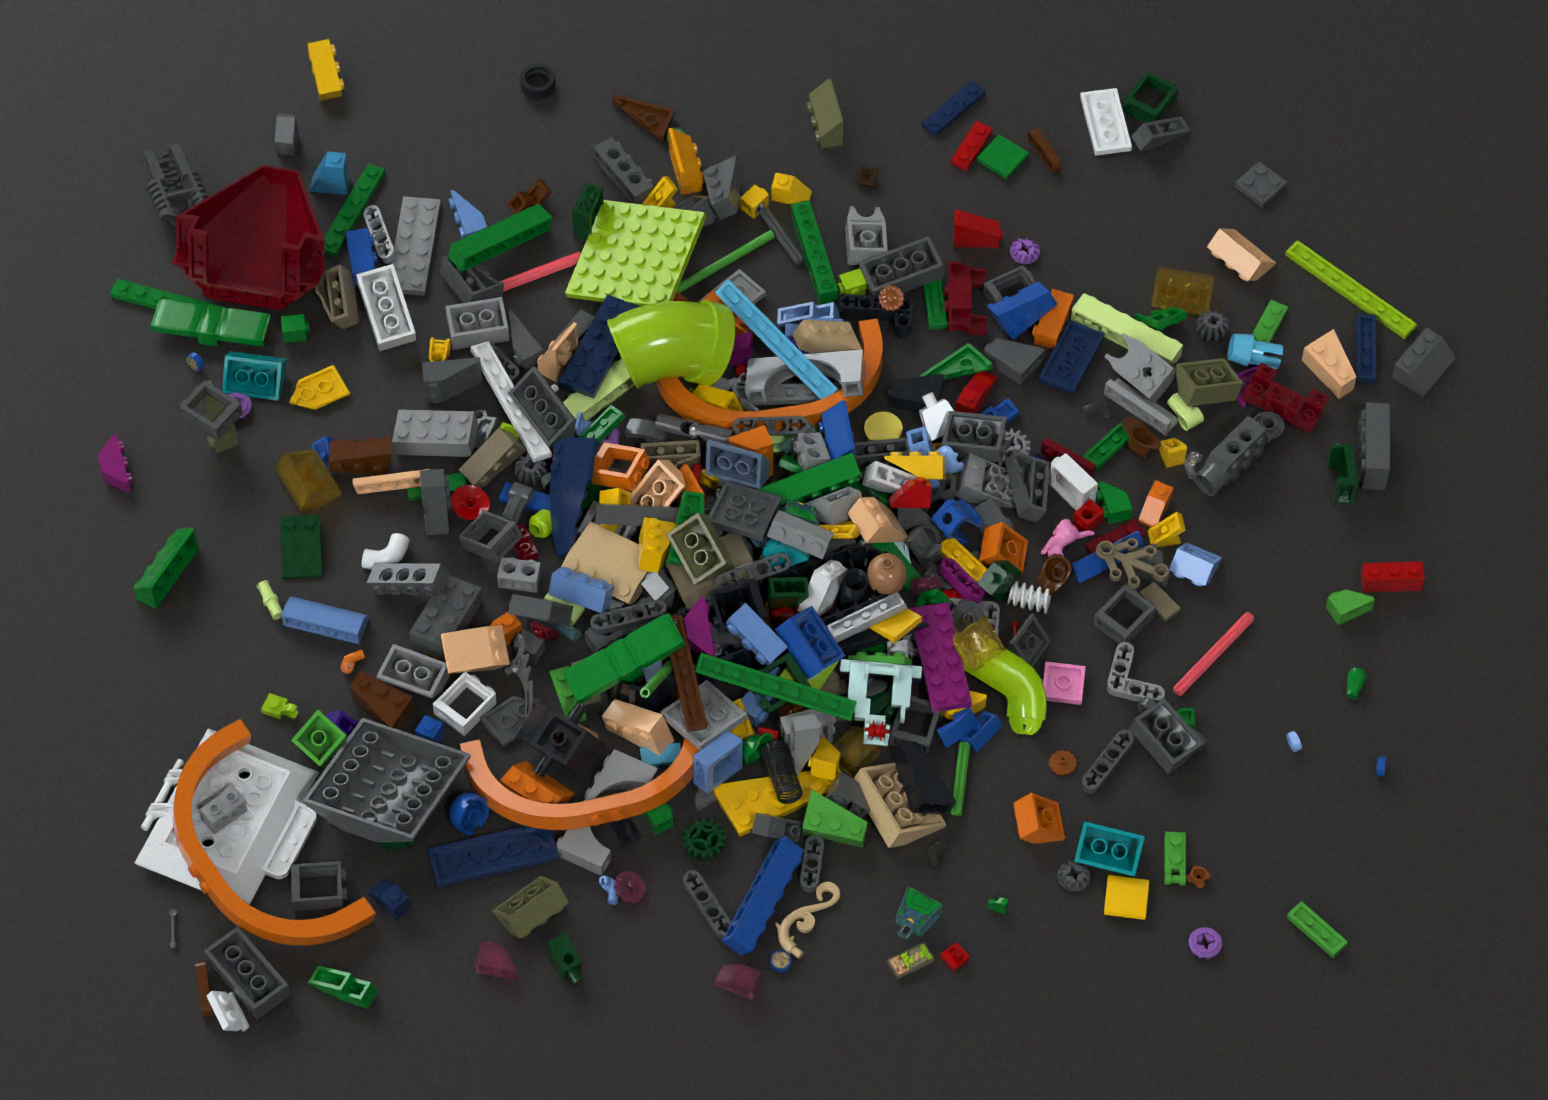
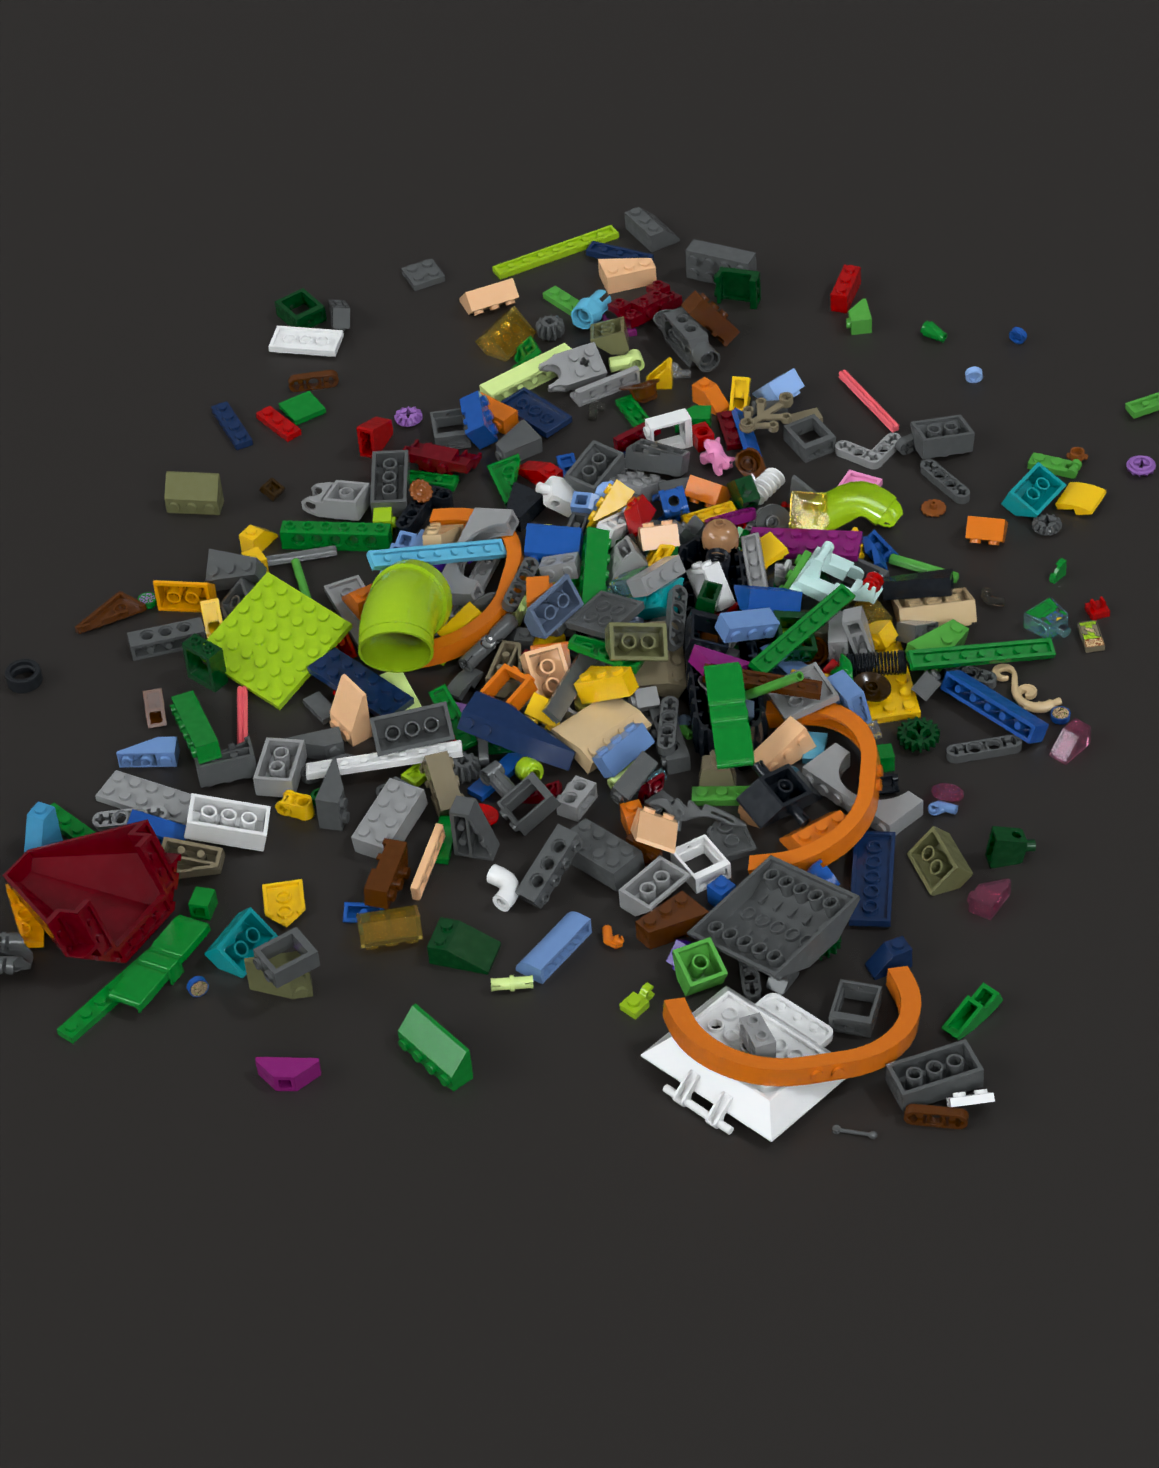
camera: 65 degrees left, 15 degrees down
(748, 768) = (874, 685): none -> dark brown dish
(827, 862) = (980, 654): none -> green plate
(1270, 461) = (710, 317): none -> reddish brown wedge

